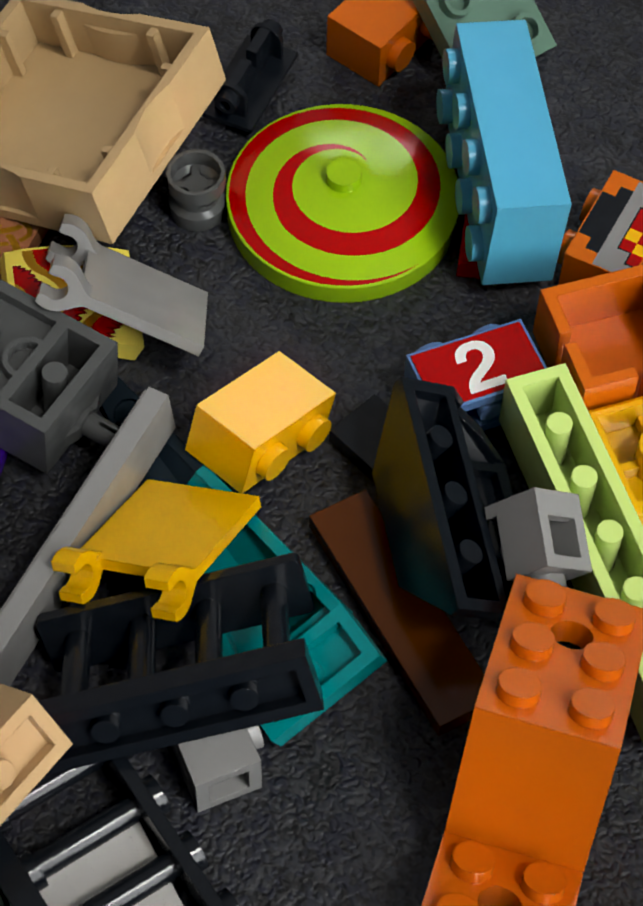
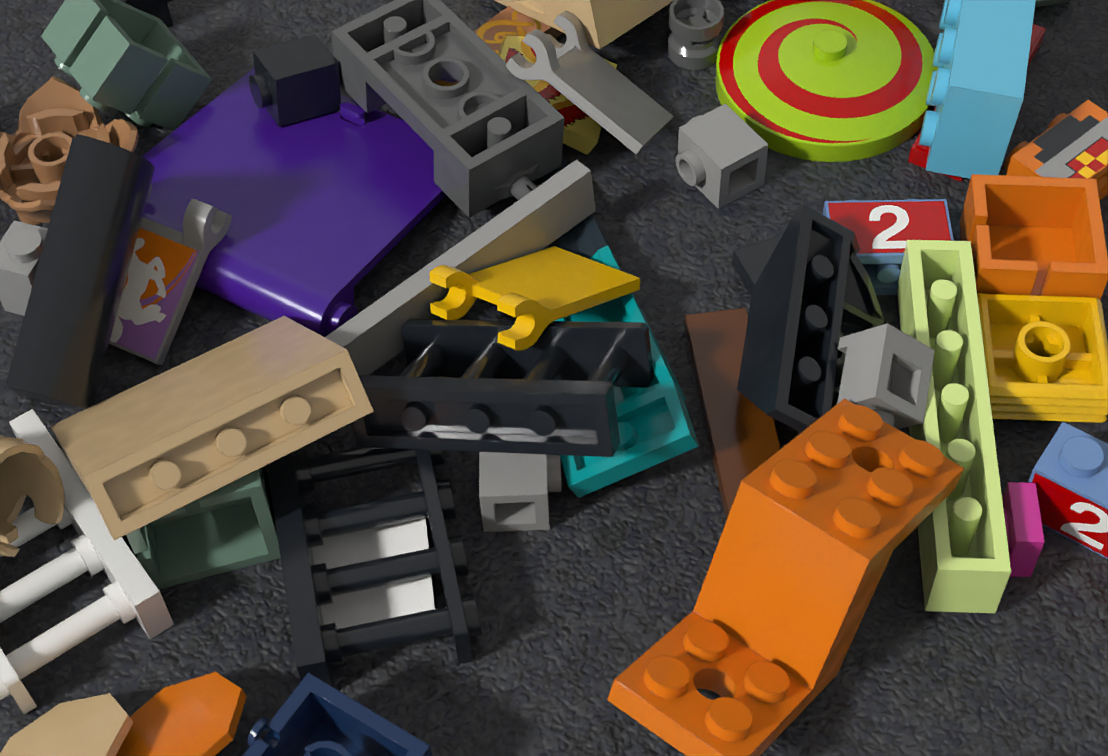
camera: 25 degrees right, 5 degrees down
(260, 422) = (670, 222): yellow brick -> none
(274, 320) = (721, 156): none -> light grey brick

